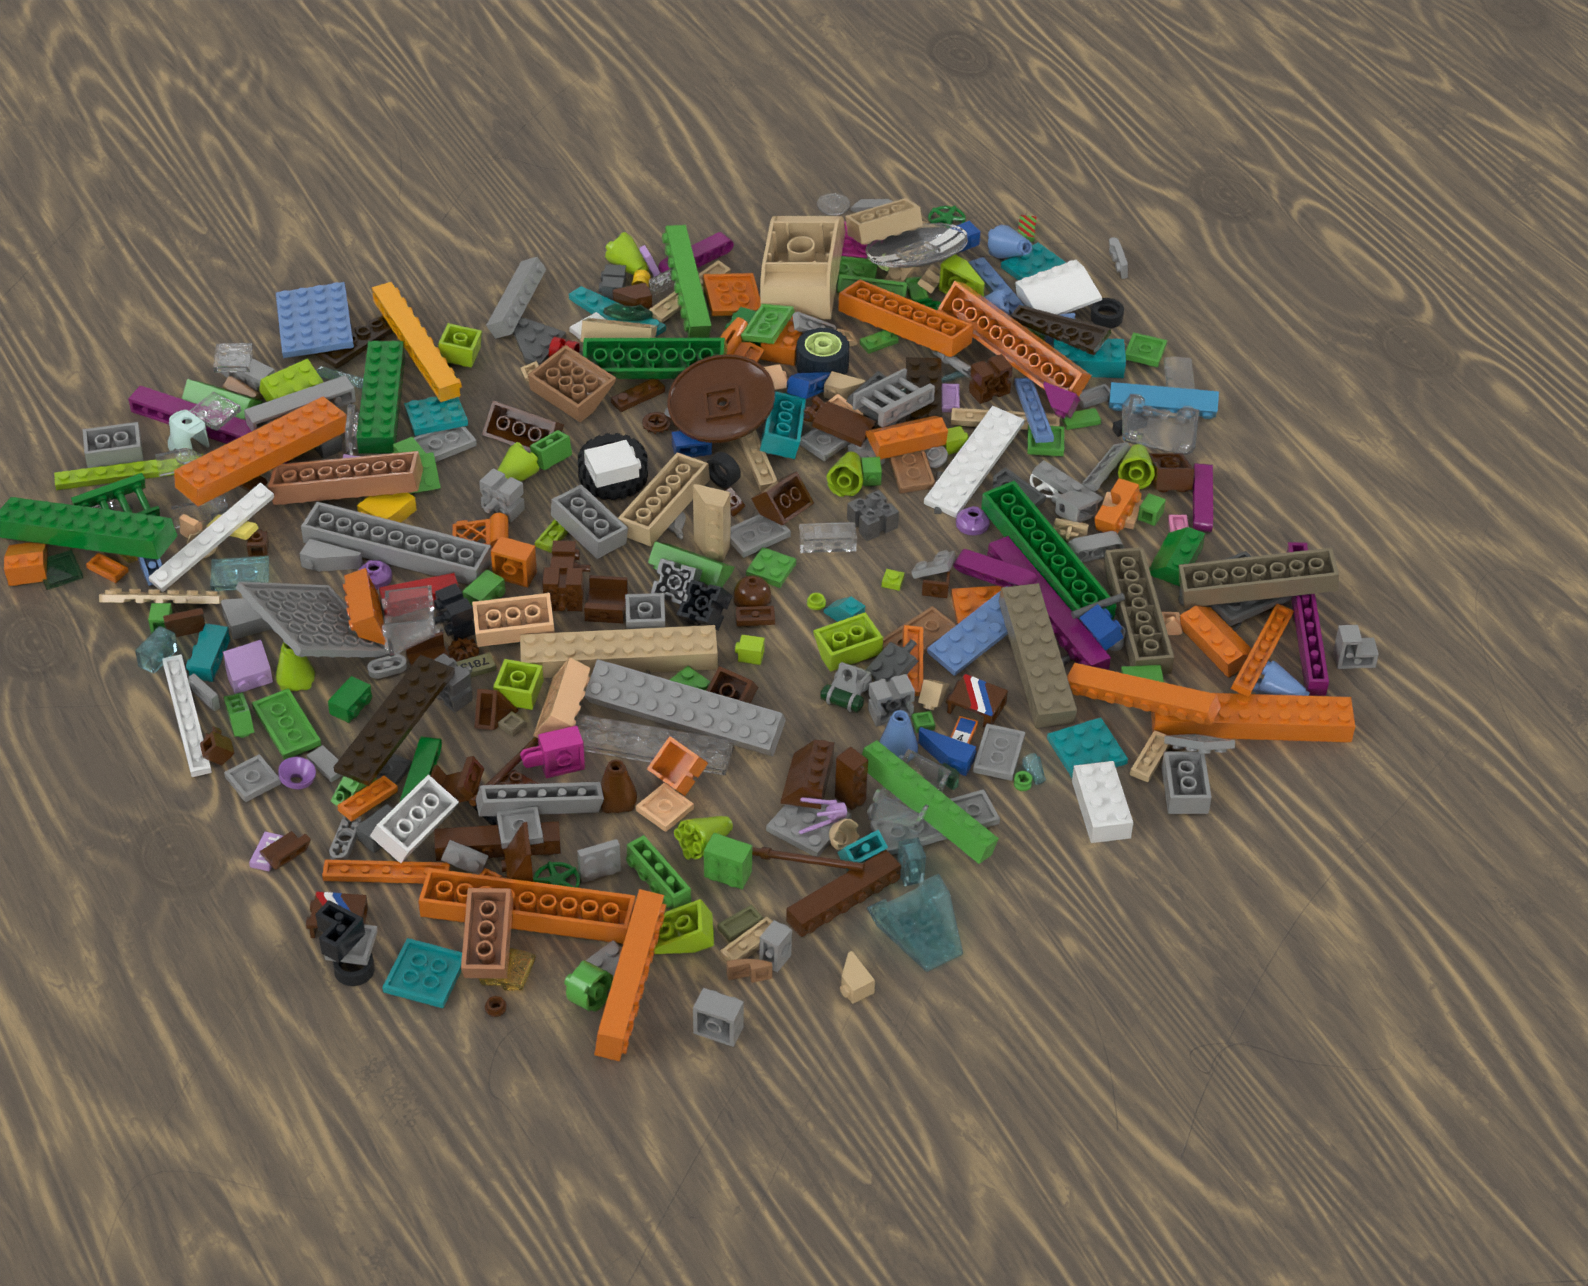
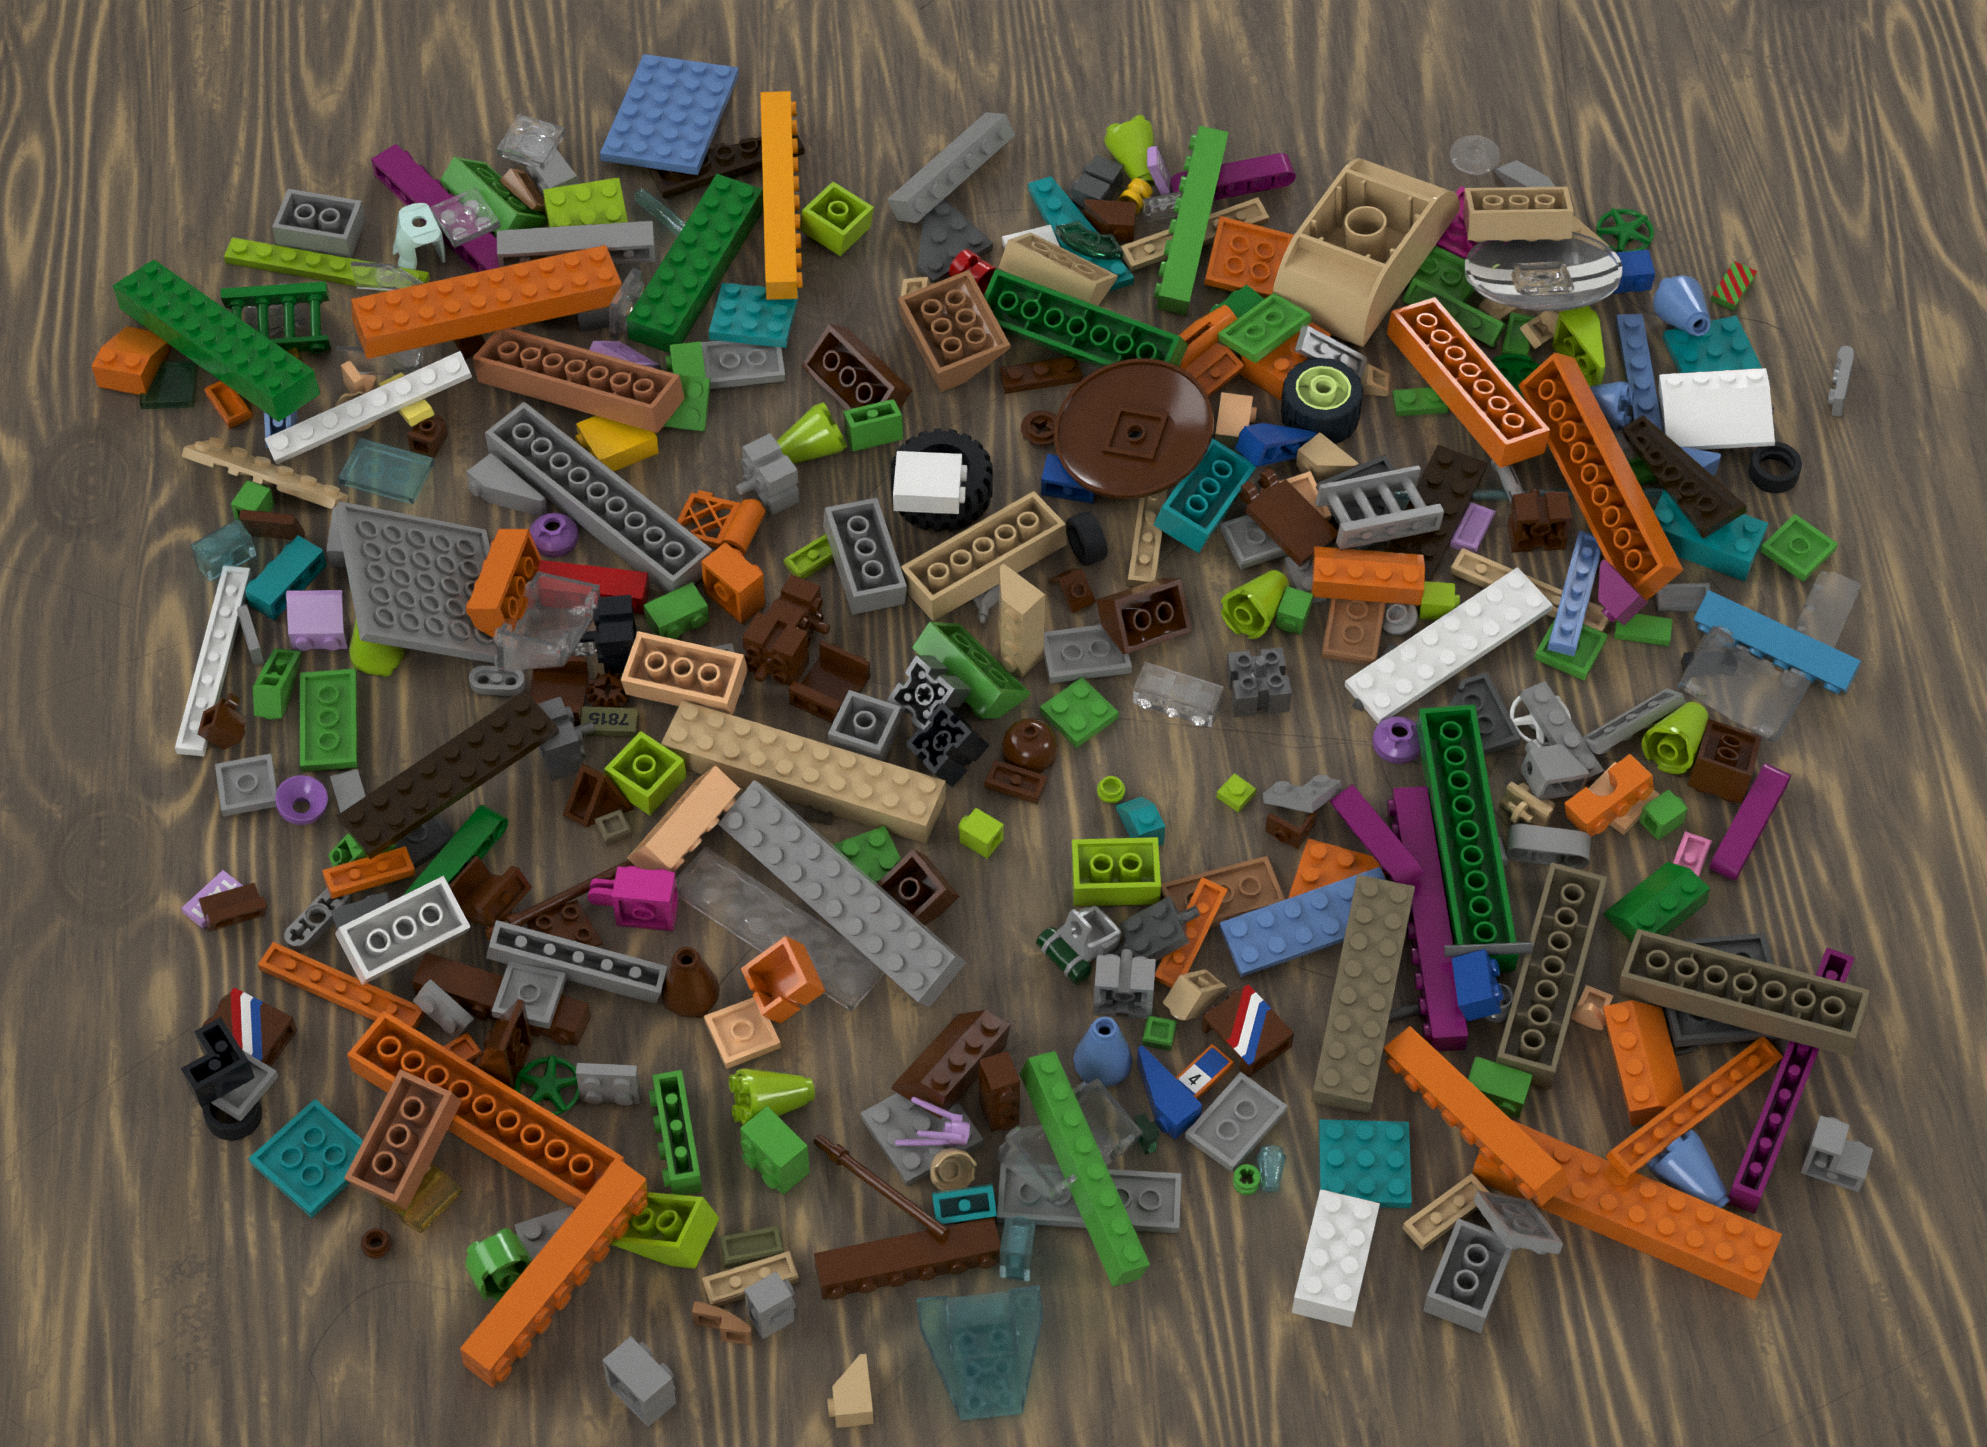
camera: 25 degrees right, 10 degrees up
(350, 699) = (424, 714): green brick -> none

